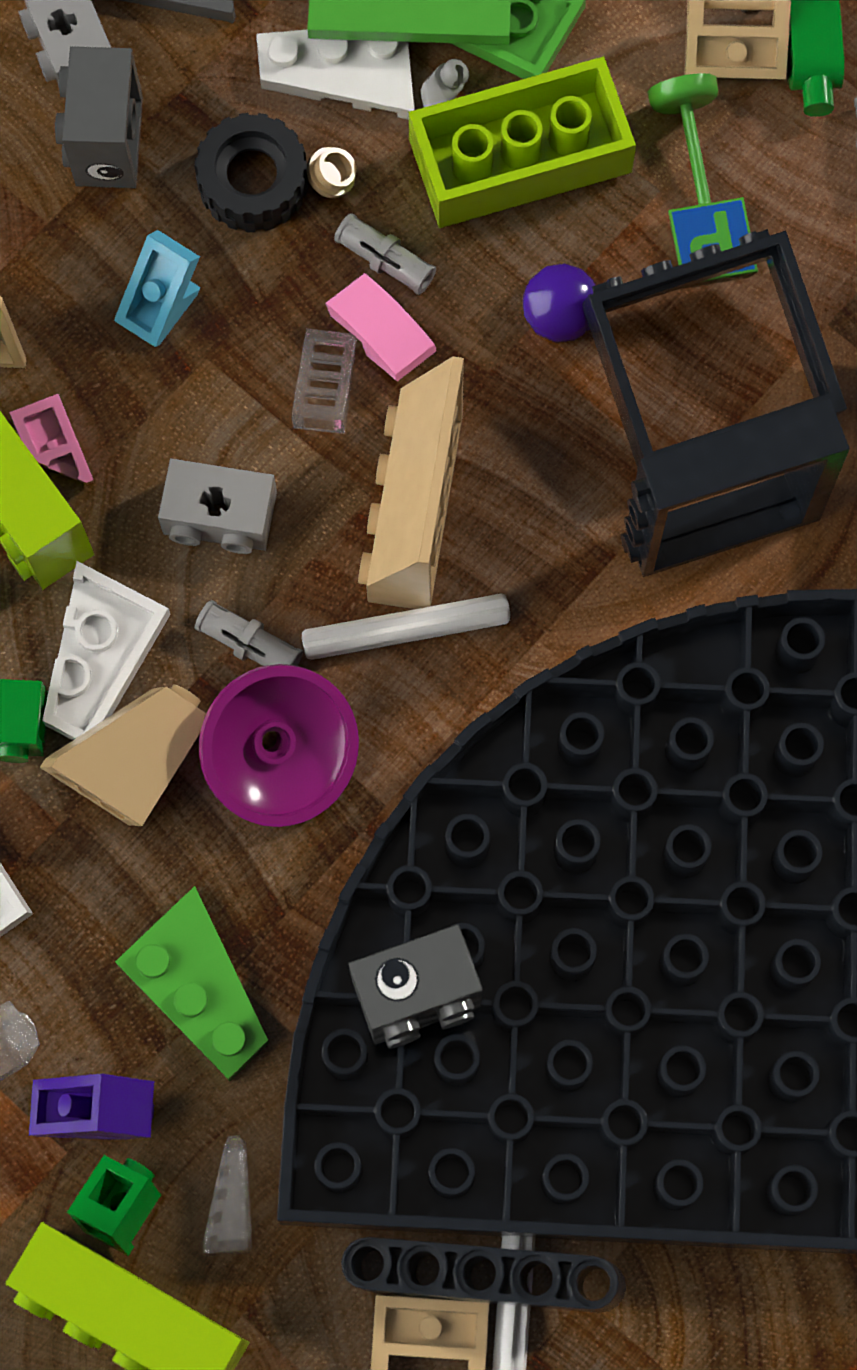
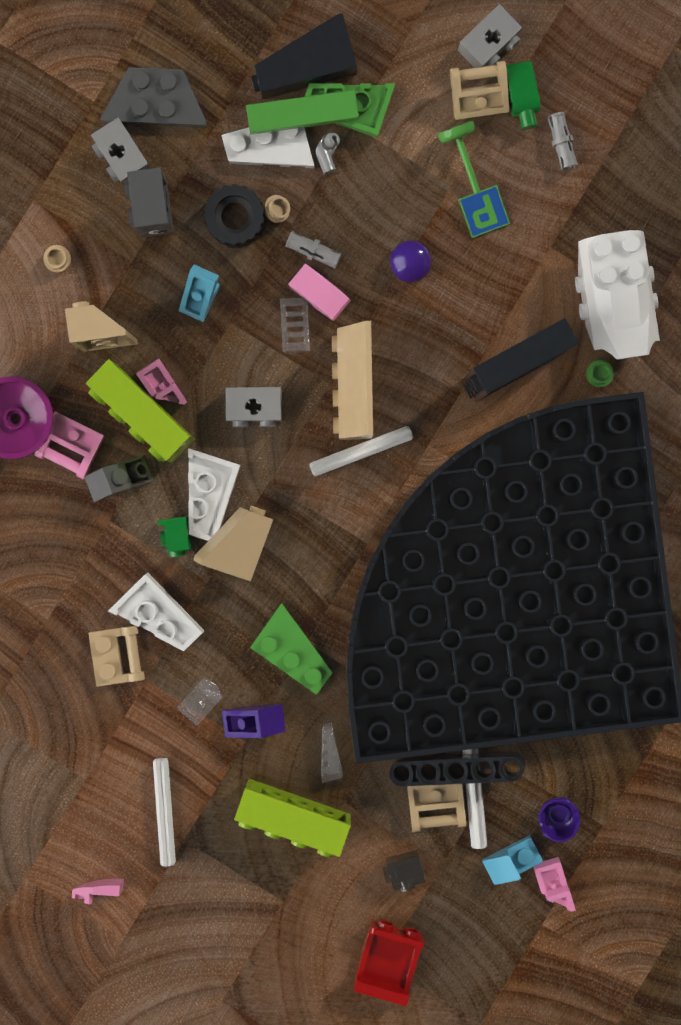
camera: 10 degrees left, 15 degrees up
(98, 1202) = (266, 765): green brick -> none
(245, 637) = (283, 472): light grey pin -> none
(304, 767) = (320, 536): magenta dish -> none
(417, 987) = (404, 648): dark grey brick -> none
(521, 142) = (375, 176): lime brick -> none
(704, 265) = (518, 318): black window -> none

